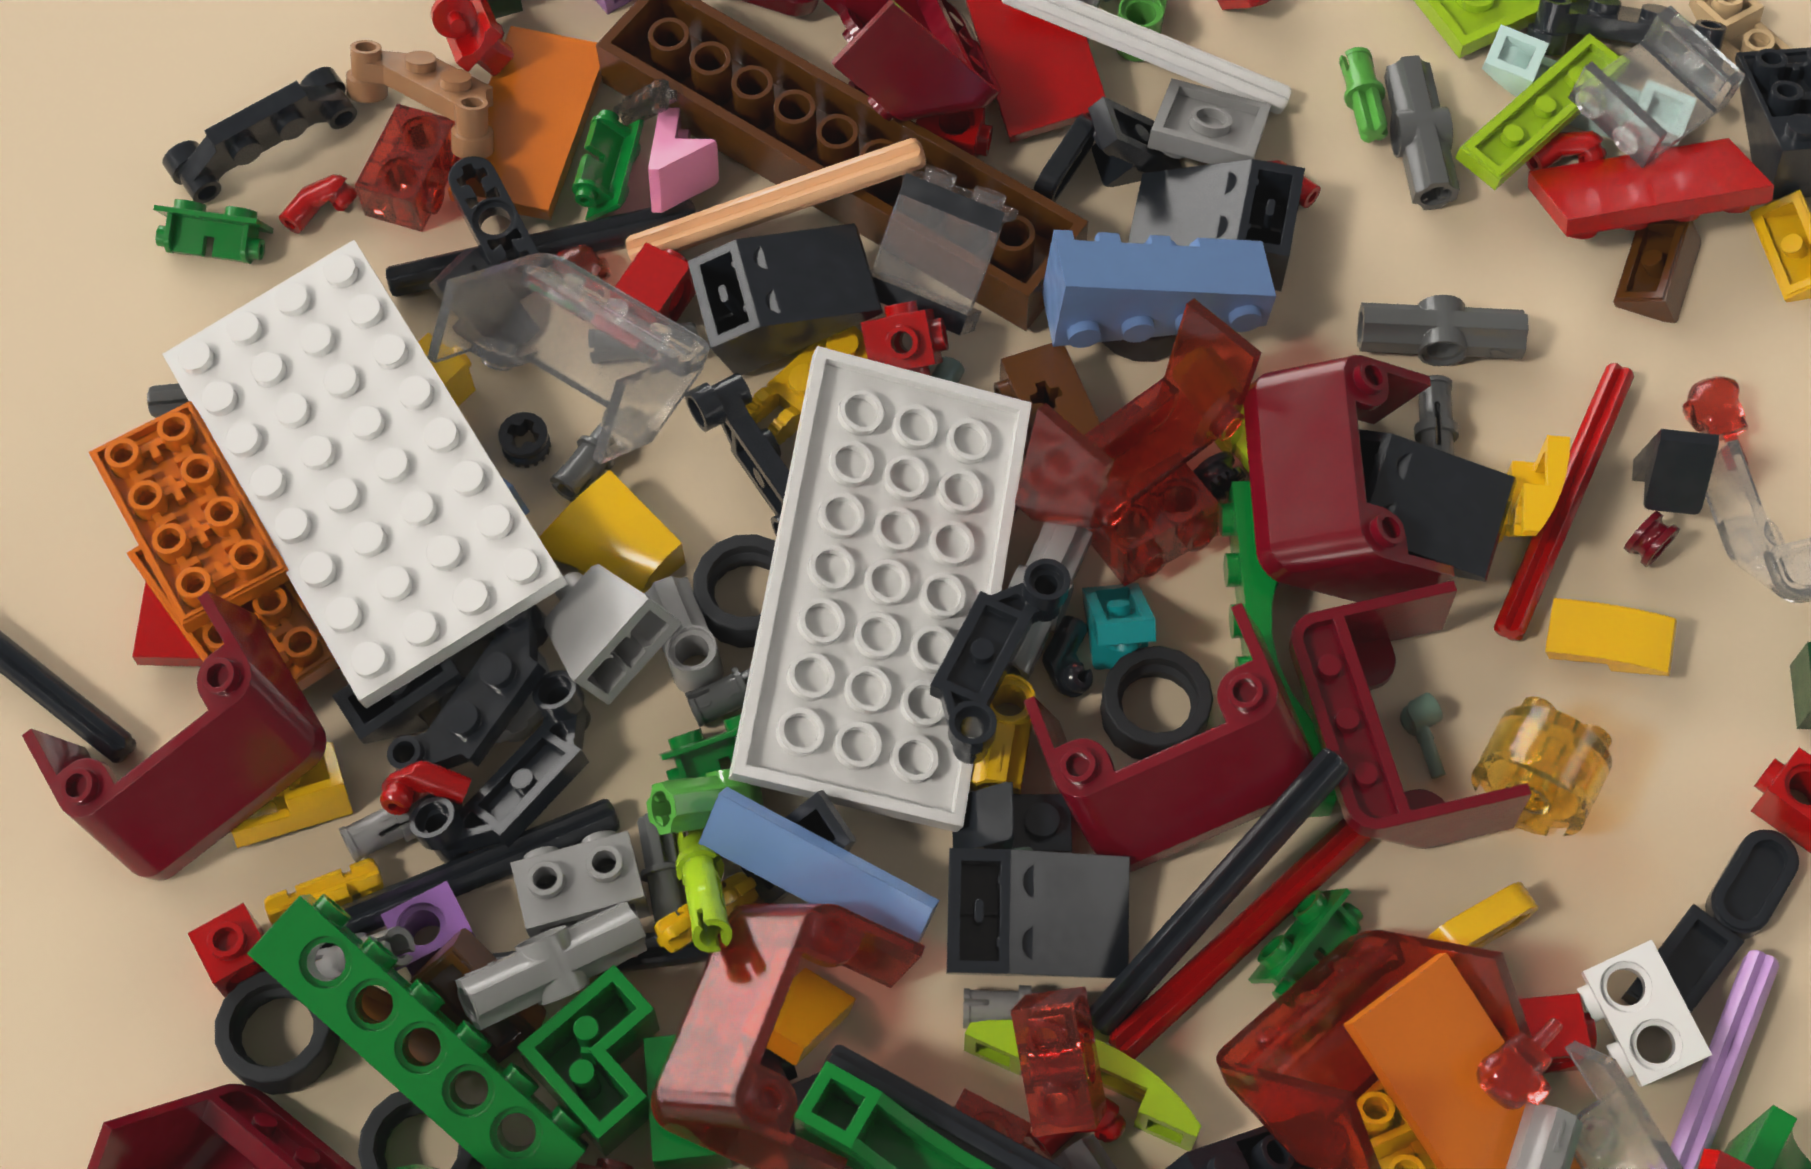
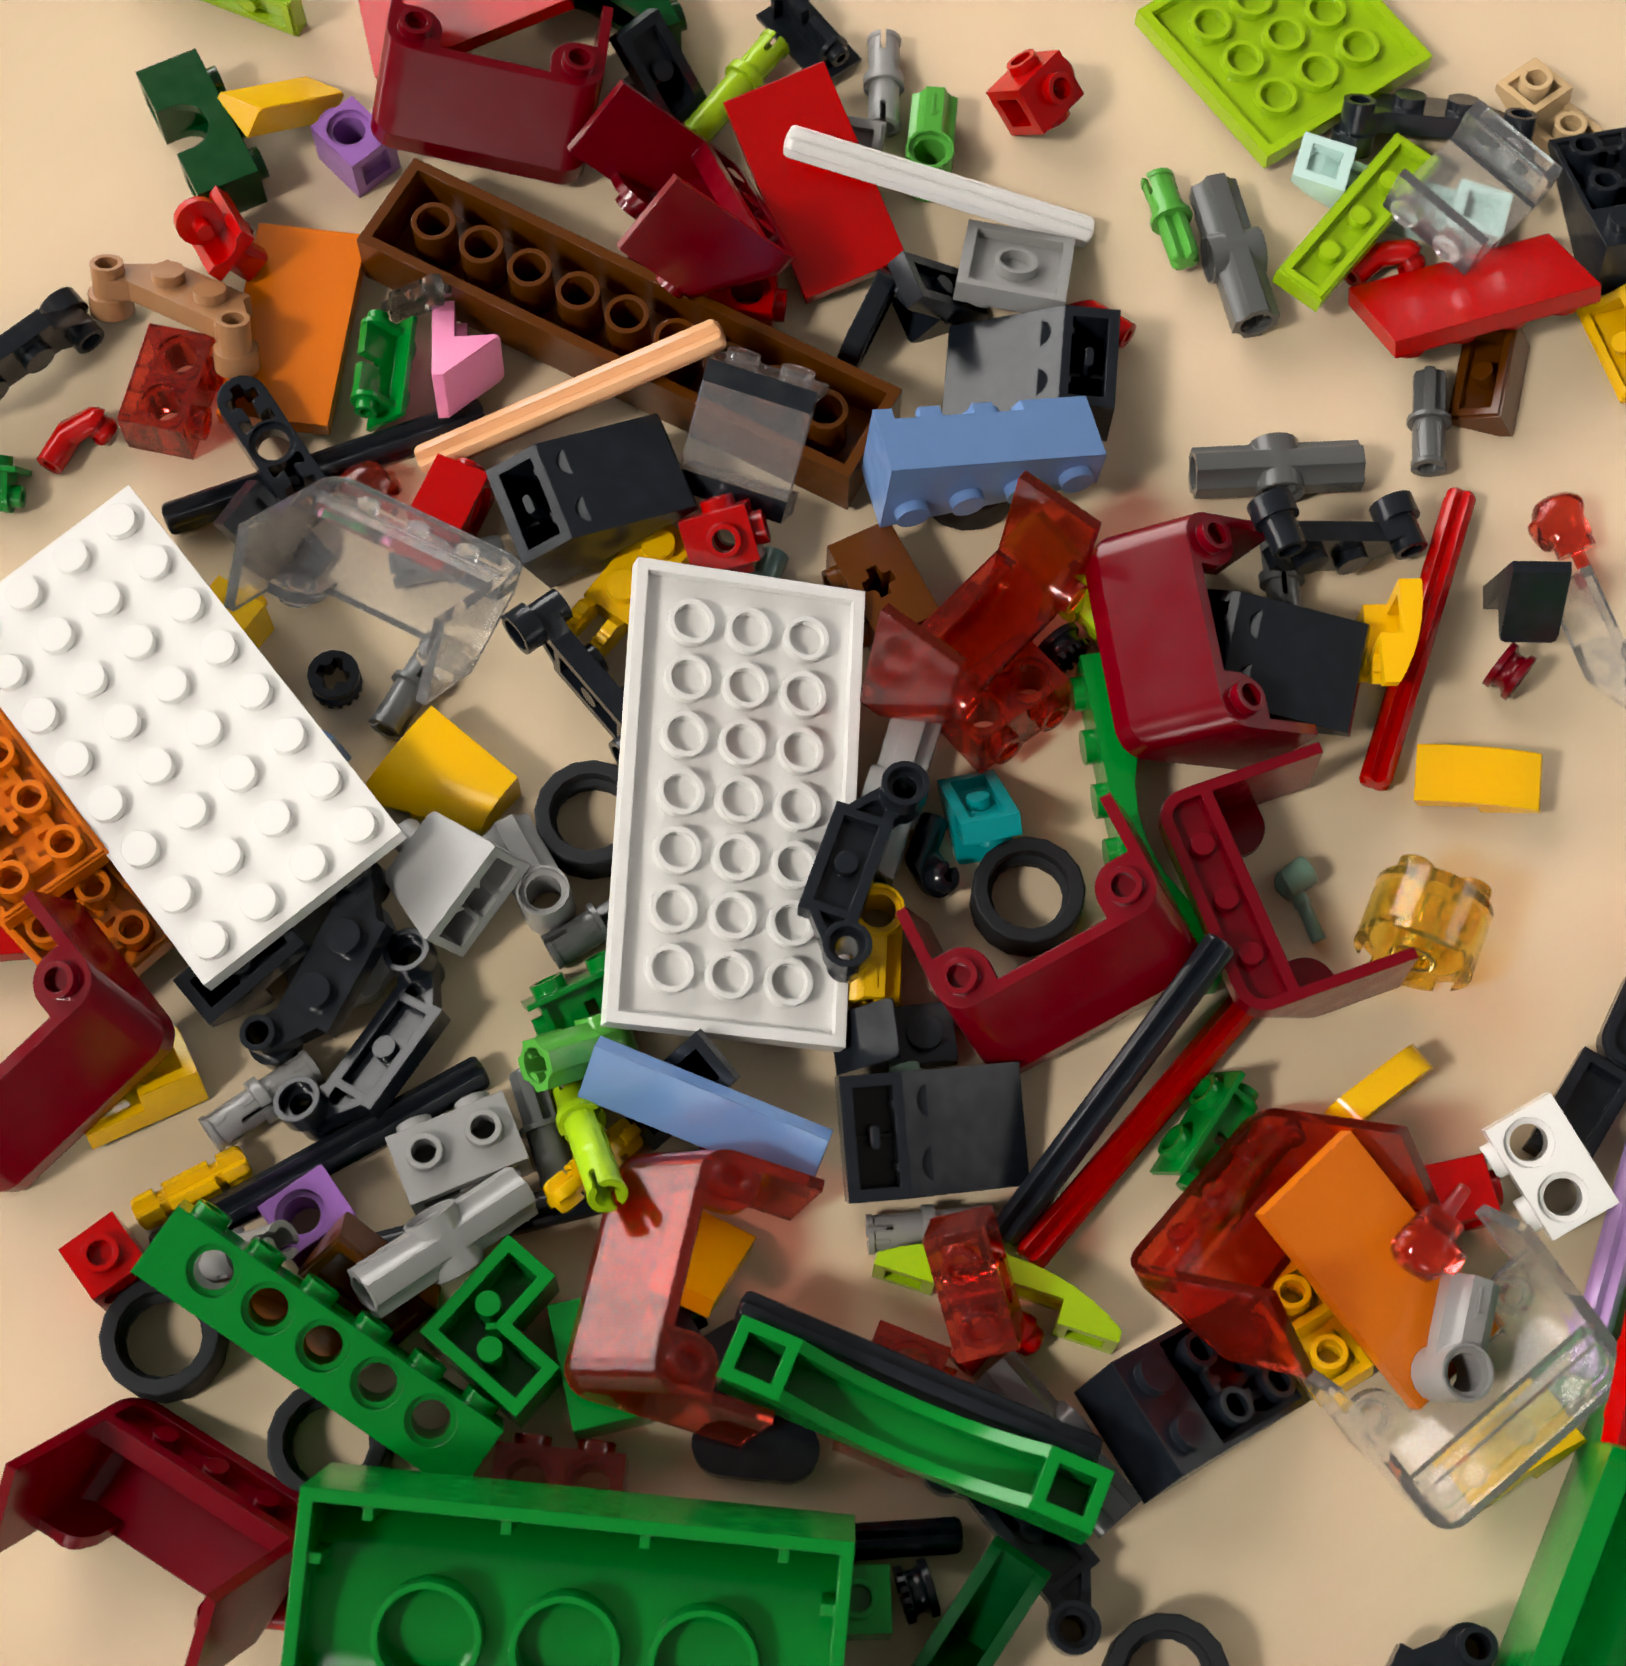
camera: 10 degrees left, 5 degrees up
(419, 781) = (276, 1061): red arm -> none
(1490, 402) = (1335, 544): none -> black plate
(1595, 302) = (1429, 422): none -> dark grey axle

